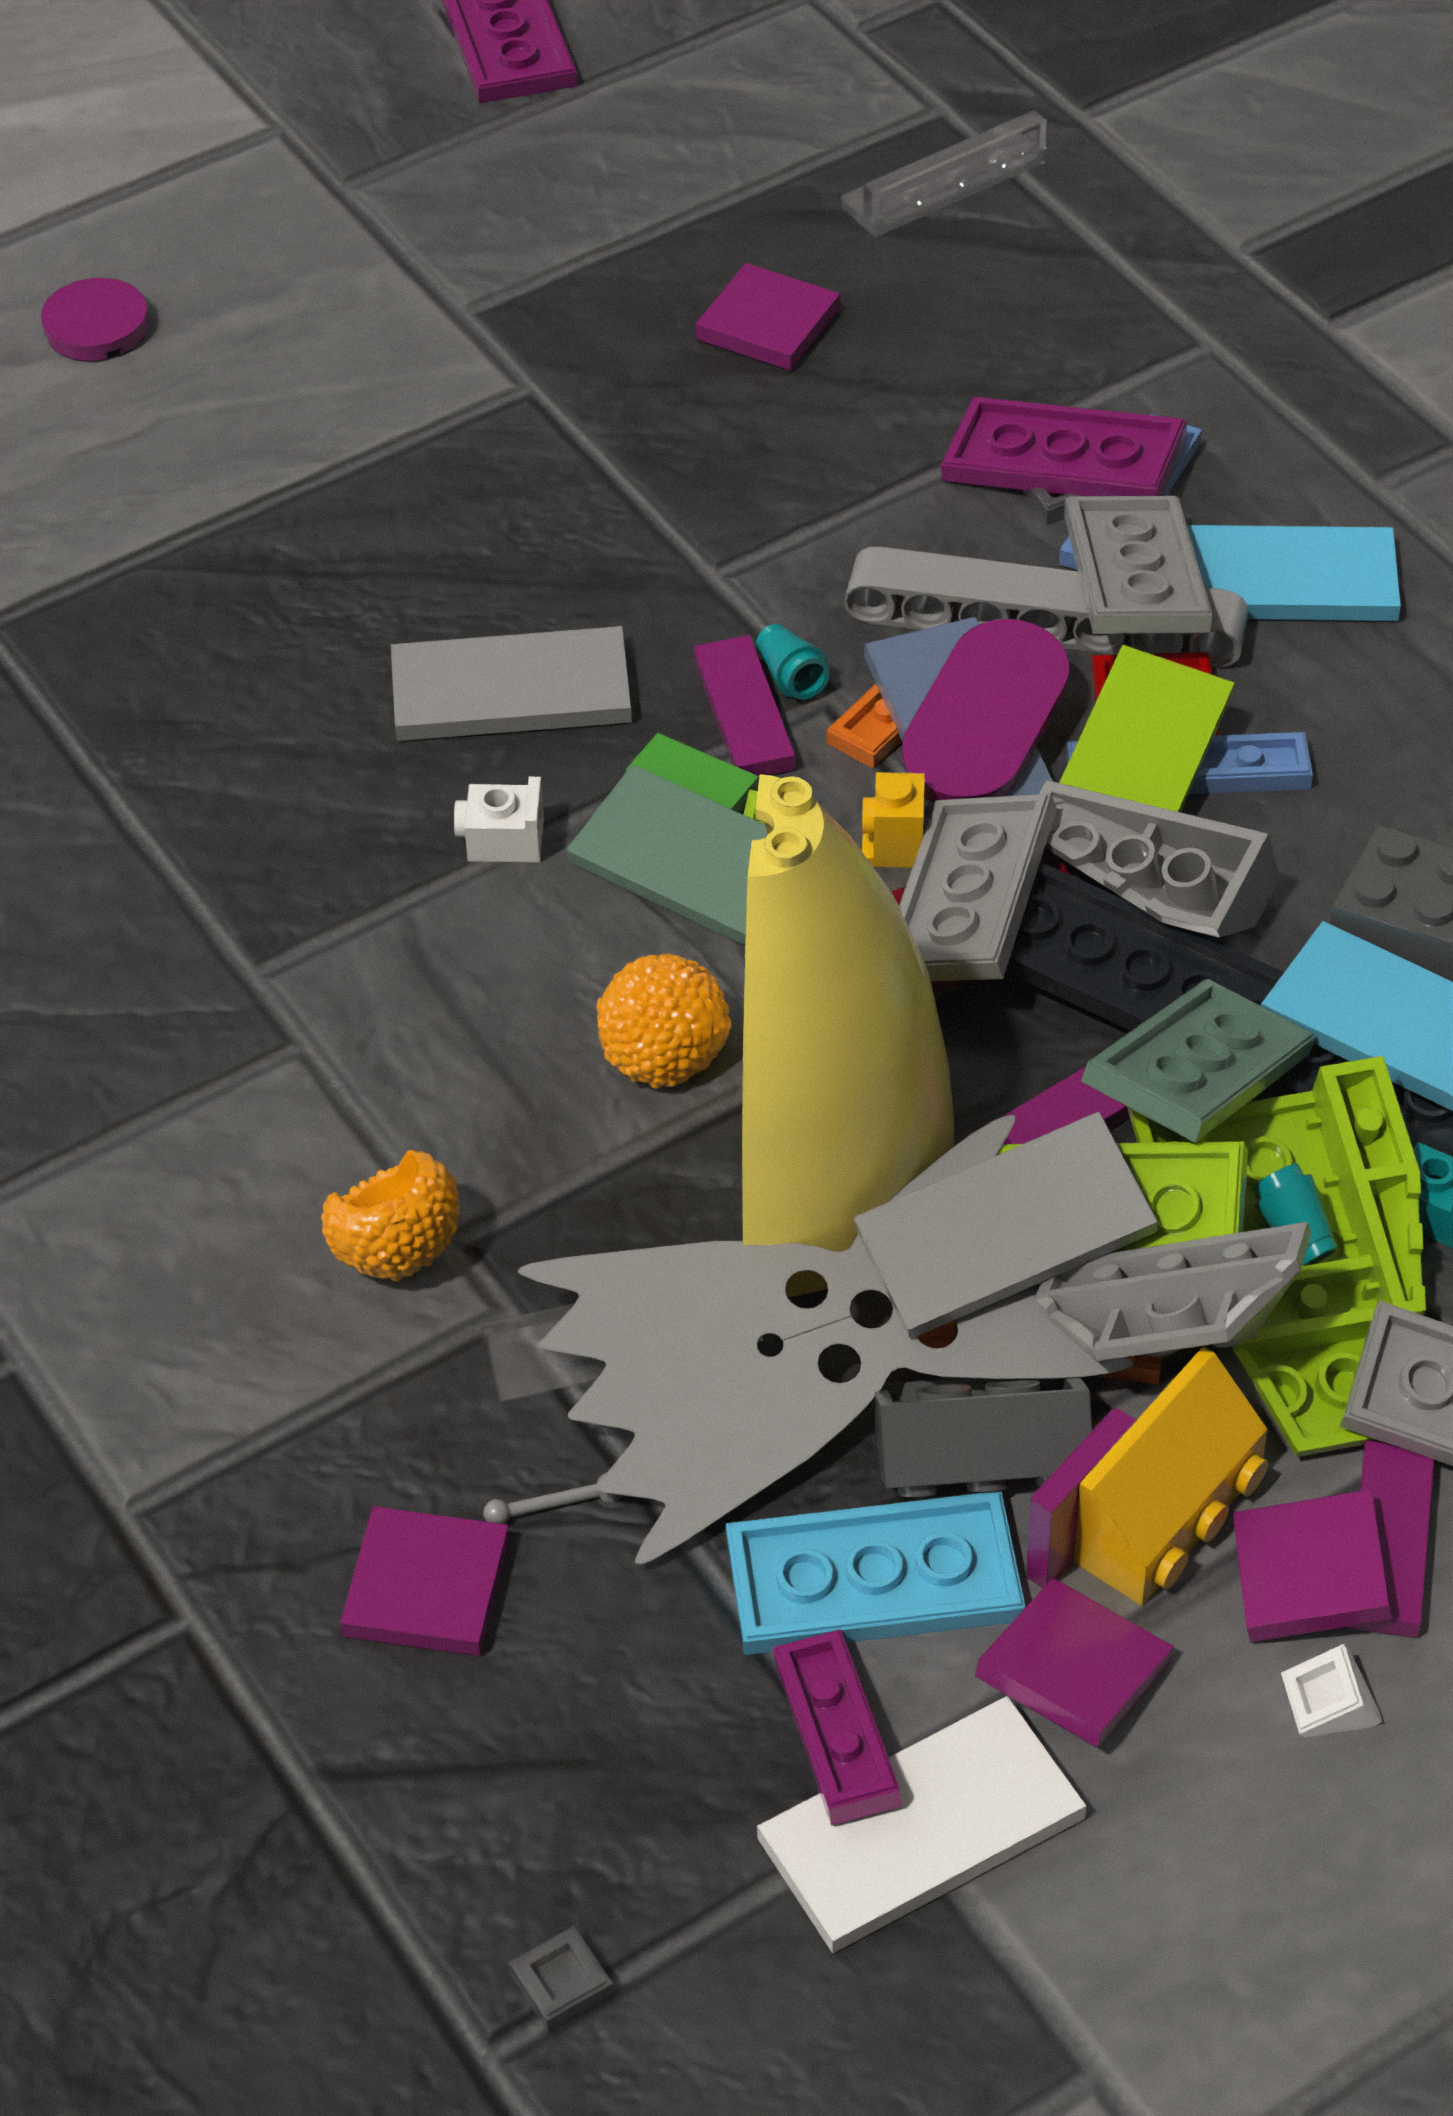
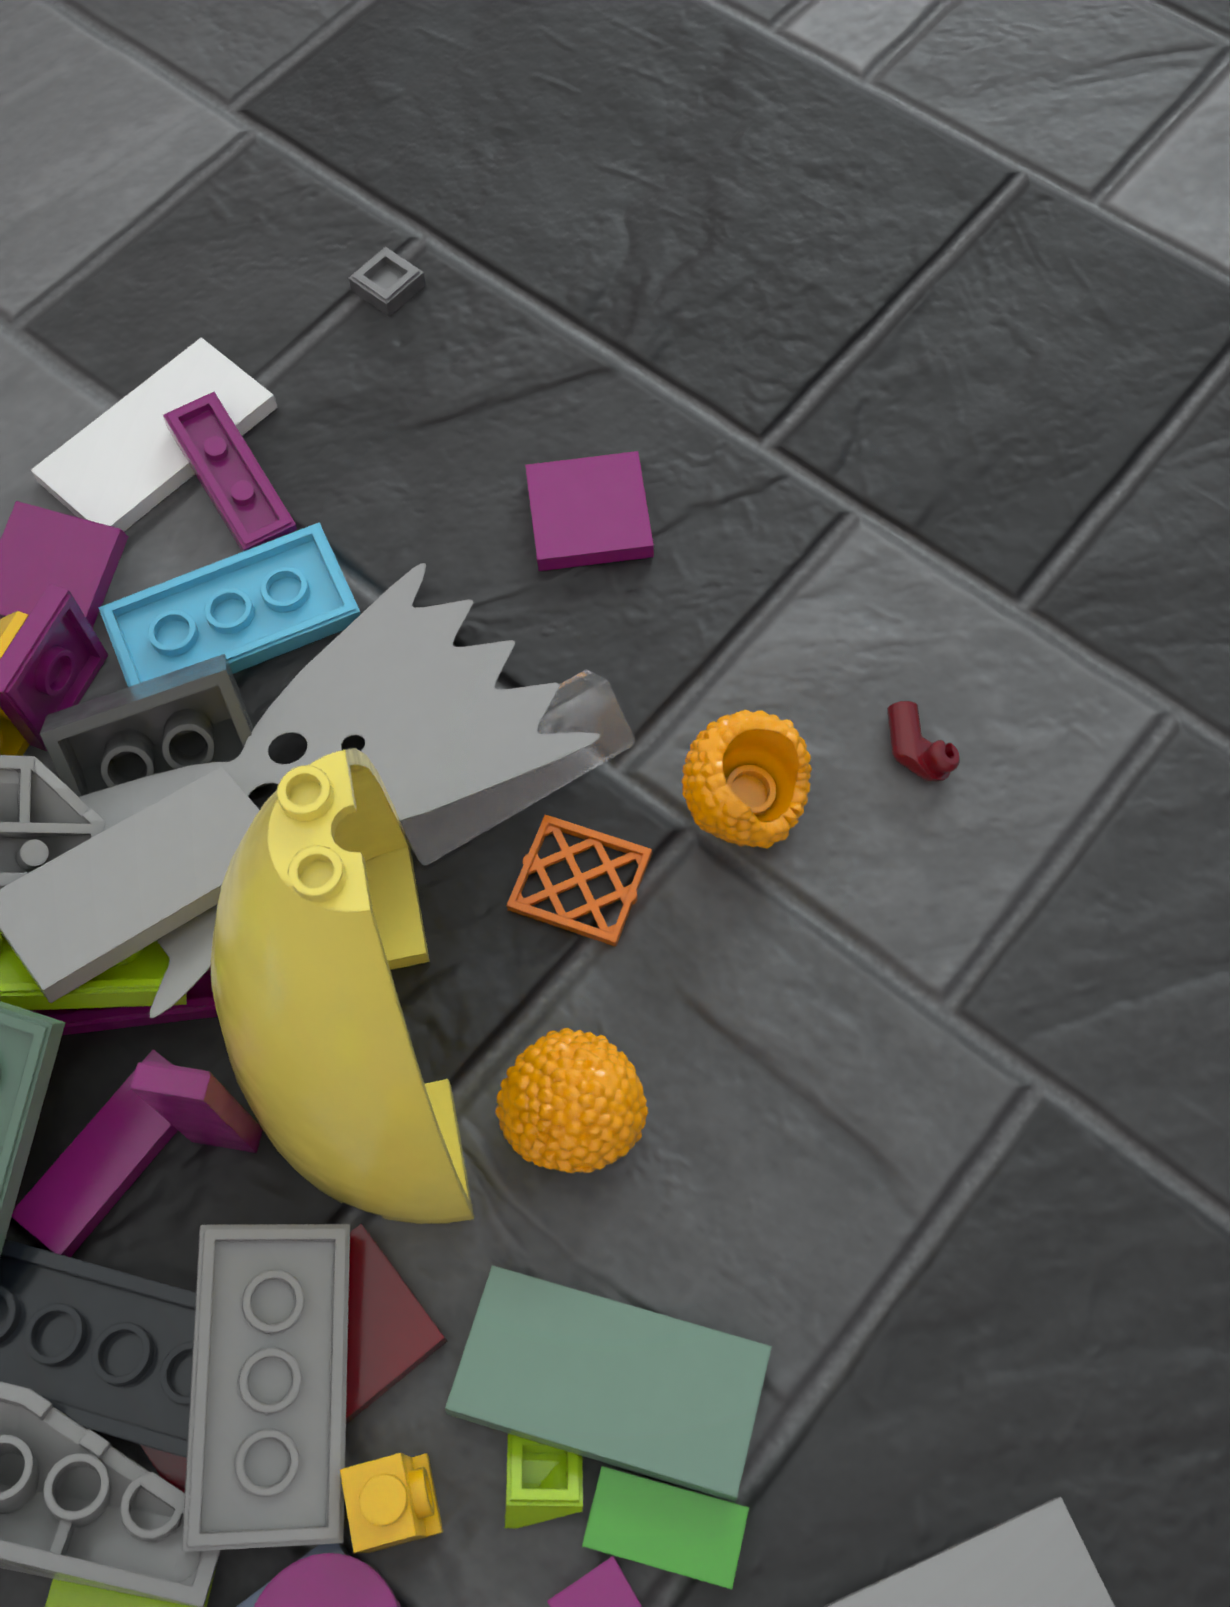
camera: 165 degrees right, 15 degrees up
(206, 1240) = (915, 752): none -> dark red arm
(499, 1511) = (472, 629): light grey hinge -> none
(501, 822) = (840, 1382): white brick -> none
(609, 1189) = (566, 920): none -> orange window
(983, 1040) = (197, 1106): none -> magenta tile

